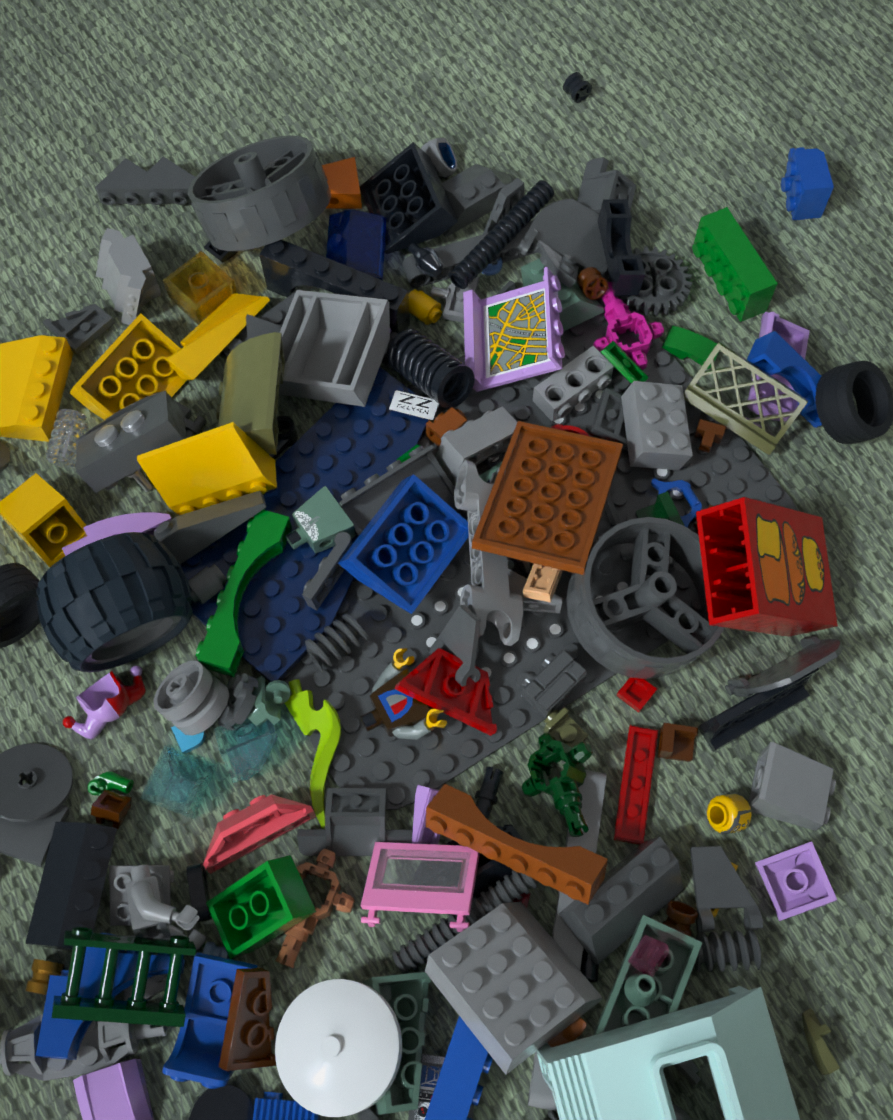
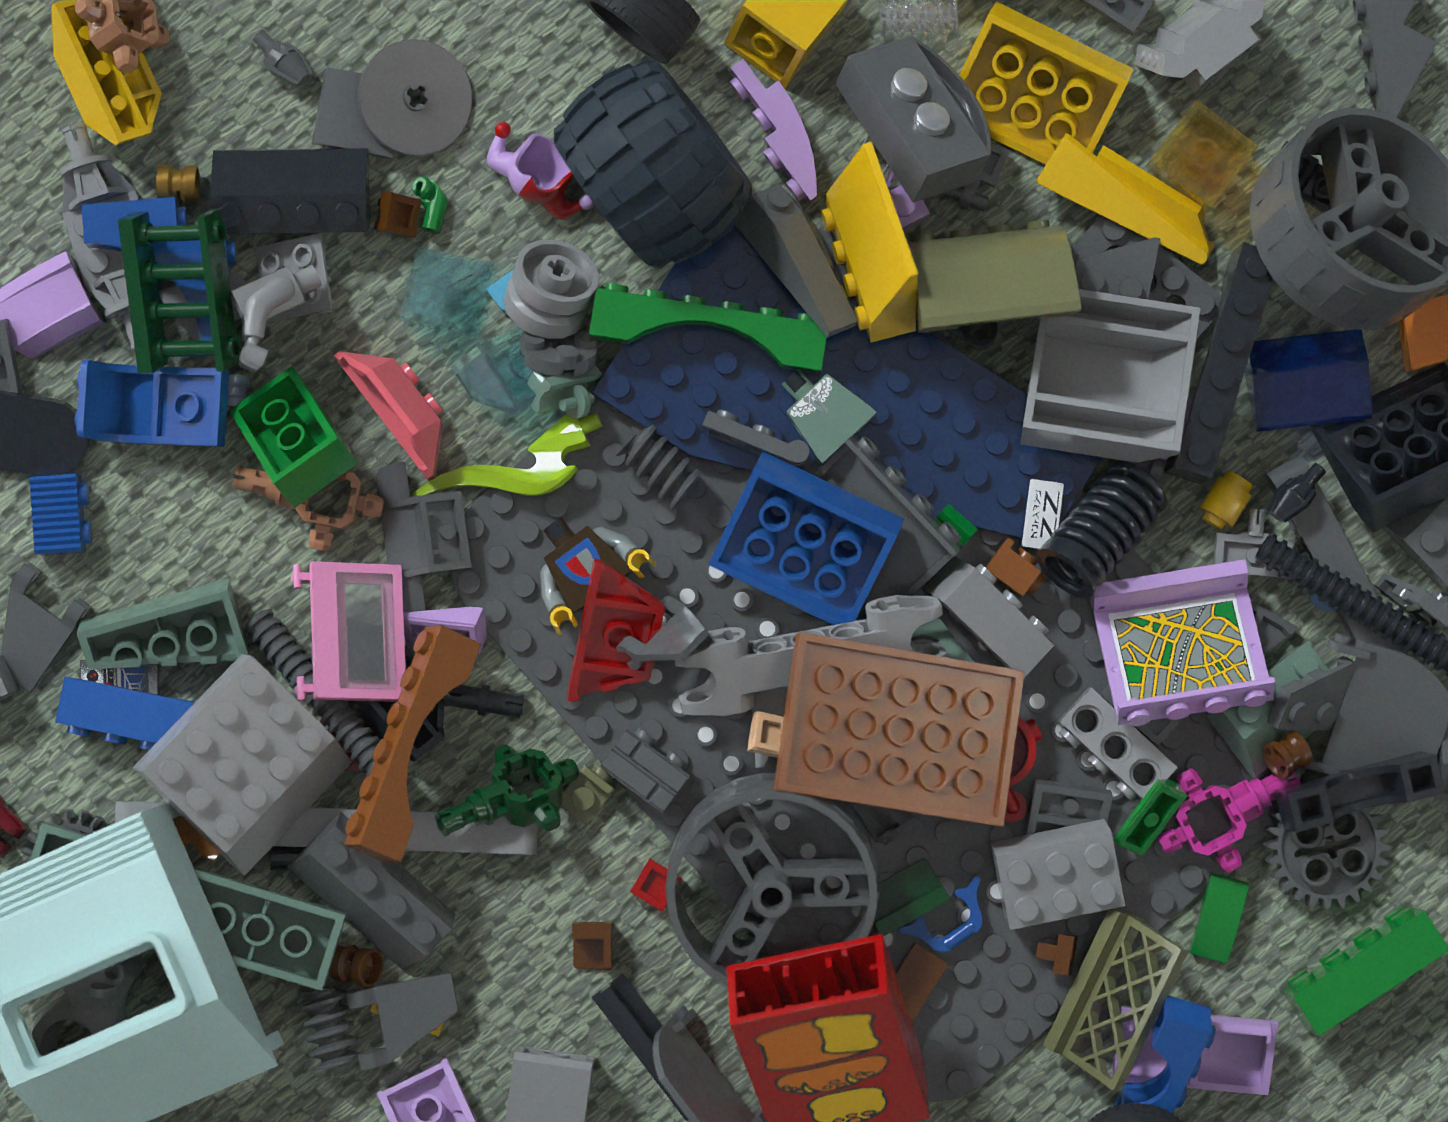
camera: 80 degrees right, 20 degrees up
(198, 890) = (308, 351): black beam -> none
(206, 584) = (711, 274): dark grey brick -> none
(248, 1026) = (151, 450): reddish brown wing -> none
(338, 1048) = (142, 563): white dish -> none
(635, 785) = (530, 895): red tile -> none
(635, 994) = (262, 913): sand green cone -> none
(649, 955) = (293, 925): clear pink slope -> none
(729, 813) = (504, 1019): yellow head -> none

